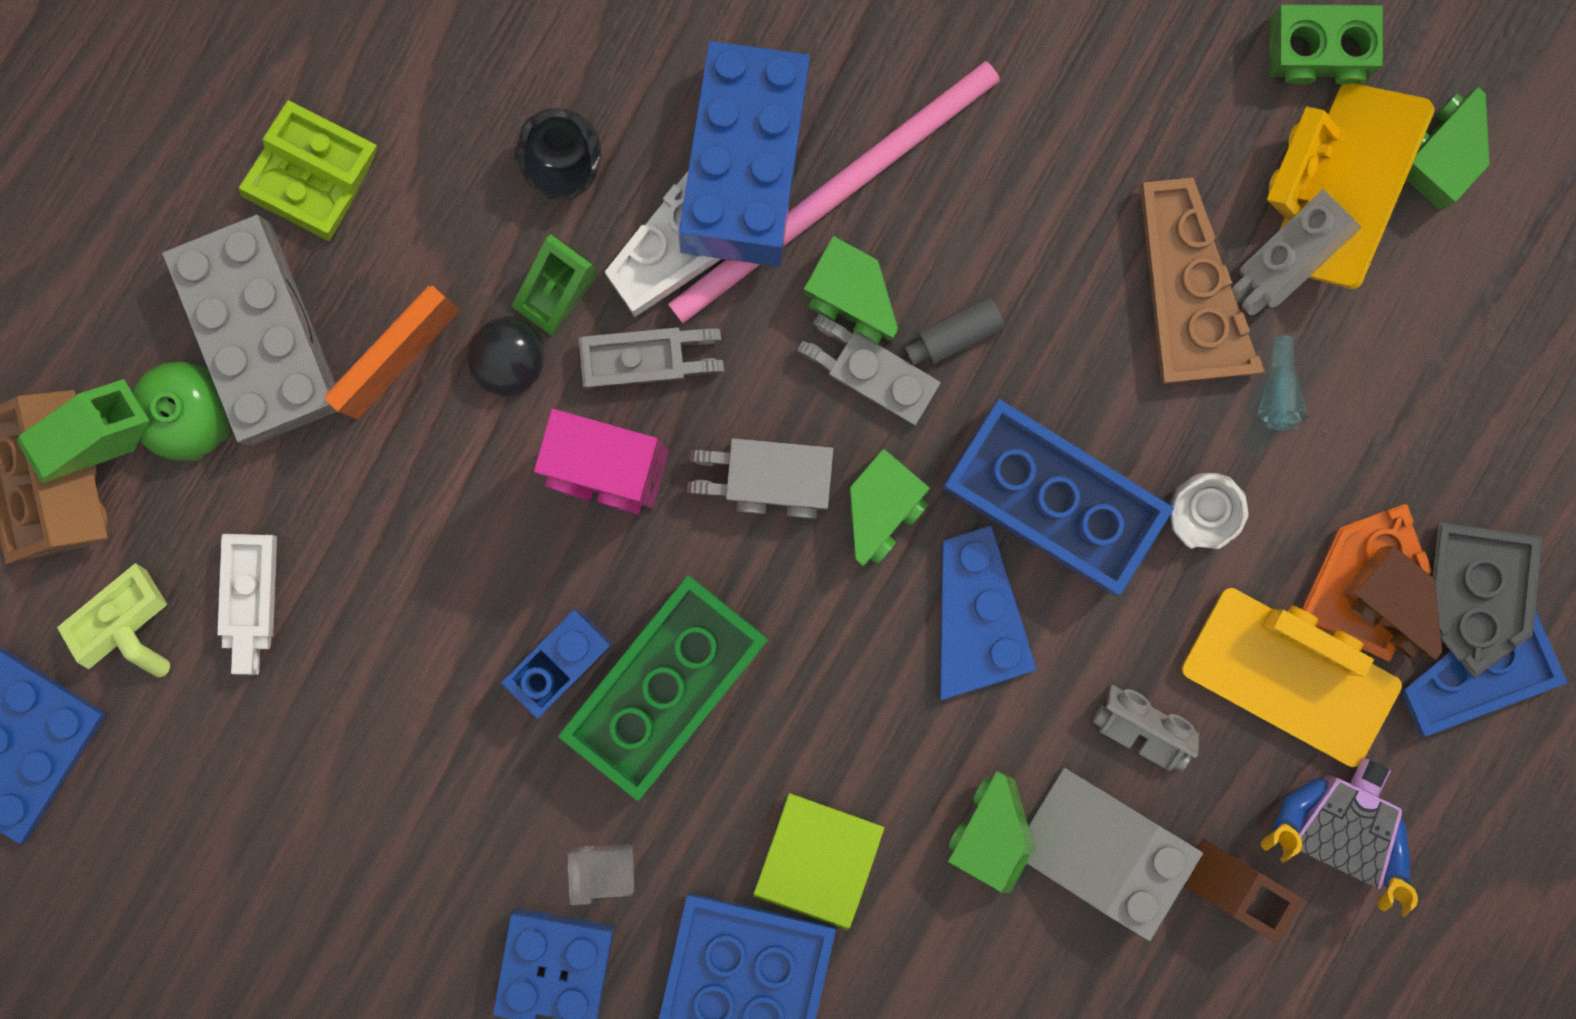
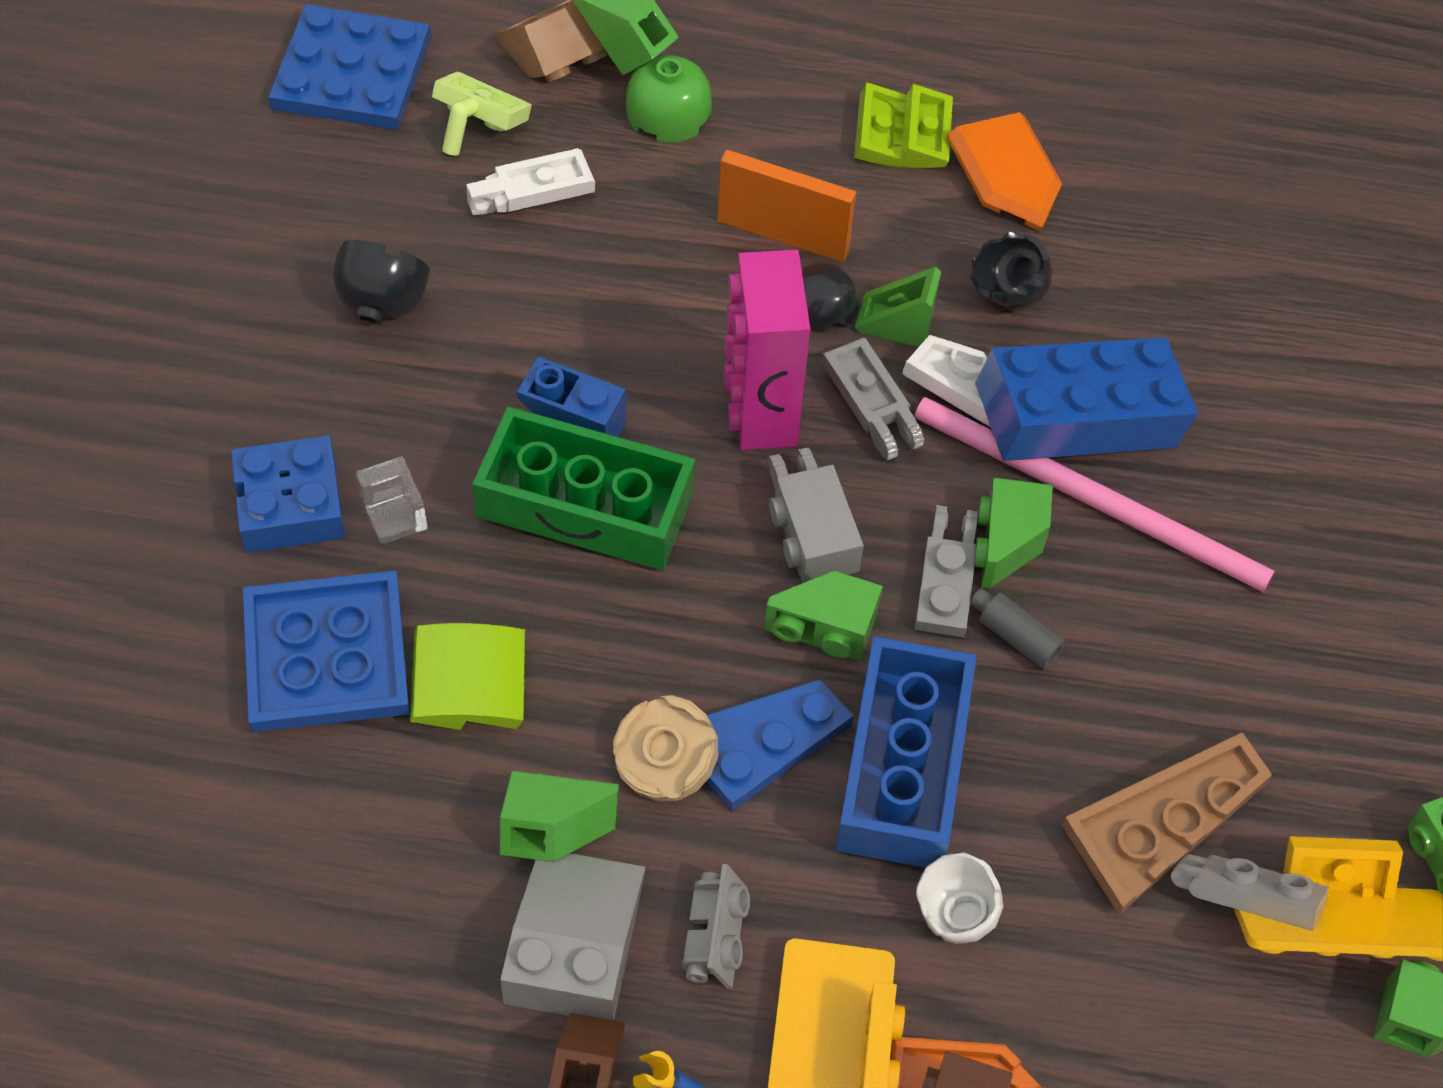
camera: 65 degrees right, 30 degrees down
(252, 329) = (763, 111): light grey brick -> none
(334, 807) = (378, 282): none -> black cylinder
(408, 85) = (1007, 167): none -> orange tile
(963, 709) = (665, 748): none -> tan tile
(1283, 398) = (1103, 939): clear light blue cone -> none

